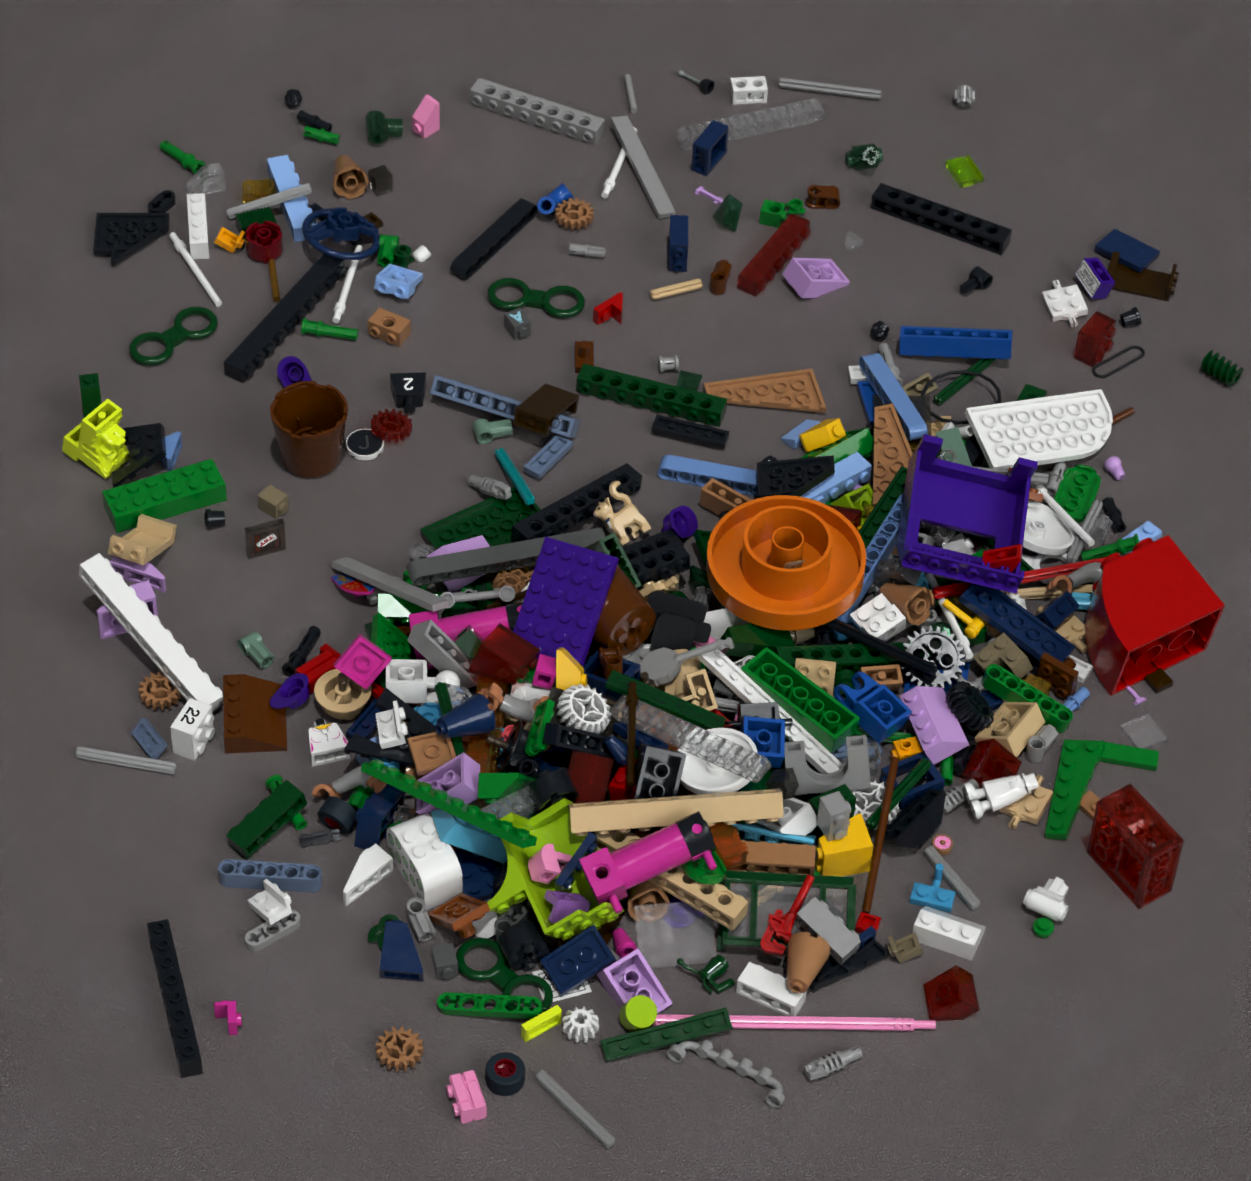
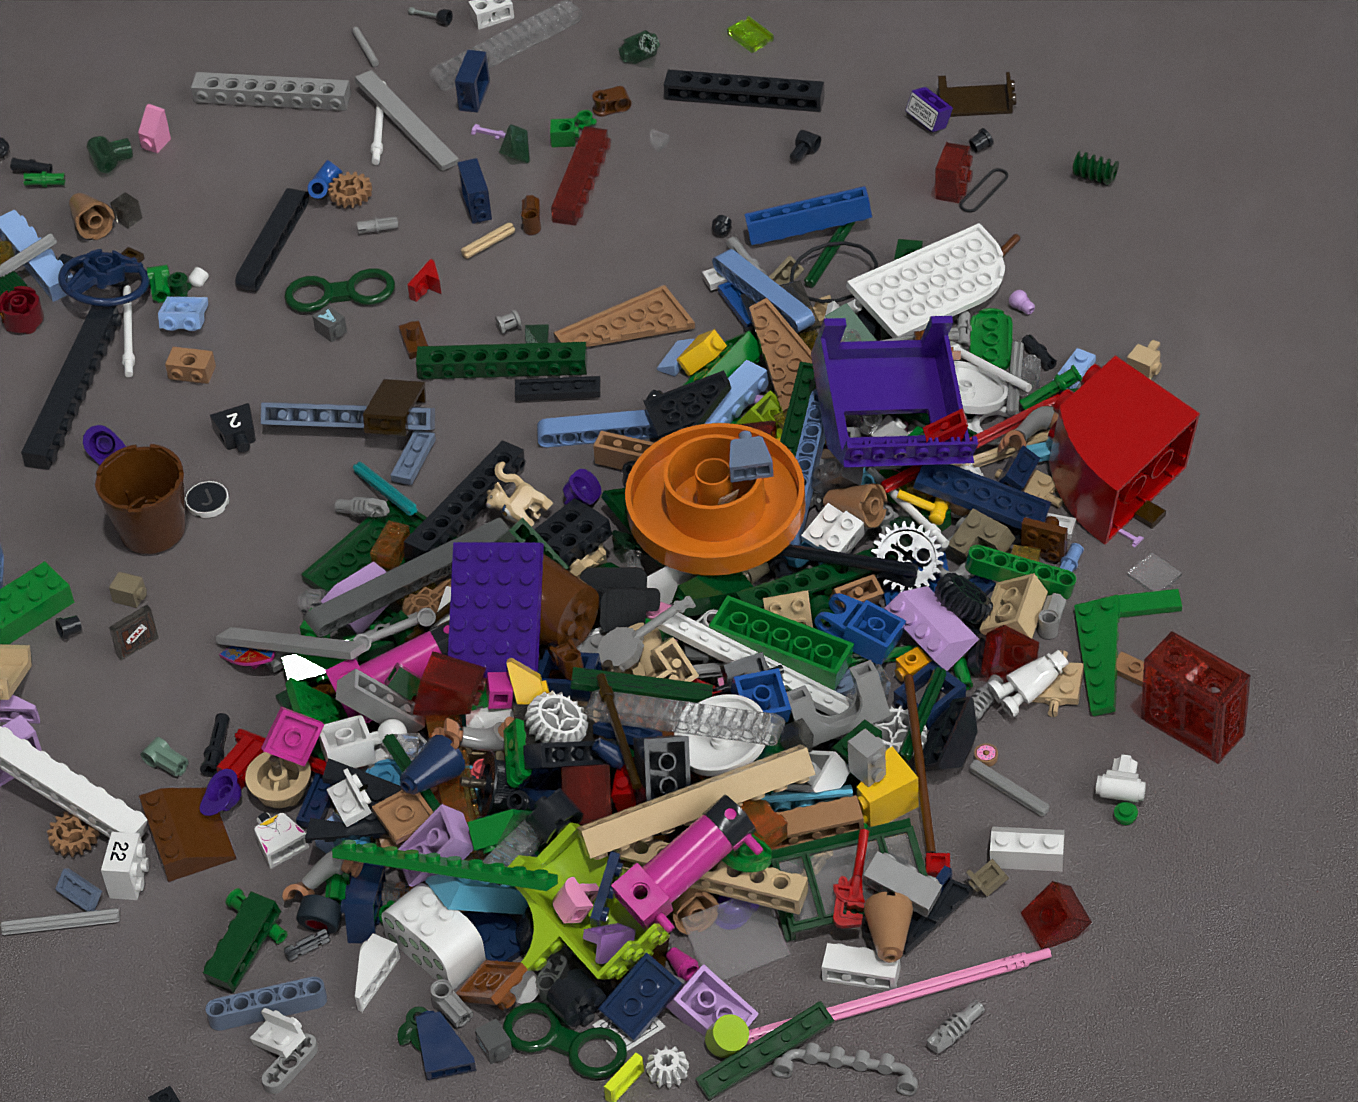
camera: 10 degrees left, 0 degrees up
(274, 280) = (45, 349): pearl gold bar -> none
(320, 329) = (128, 386): green pin -> none
(391, 425) = (229, 471): clear red gear -> none
(480, 1001) = (548, 1073): green beam -> none
(486, 431) = (336, 448): sand green piece -> none
(499, 527) = (389, 547): none -> clear orange brick
(713, 969) = (790, 962): dark green piece -> none
(814, 276) = (631, 187): lavender slope -> none
(821, 535) = (749, 458): none -> sand blue torso
(933, 895) = (996, 813): dark azure plate -> none
(1065, 303) = (906, 144): white plate -> none
(1132, 251) = (959, 72): dark blue tile -> none
(1203, 548) = (1146, 359): none -> tan brick

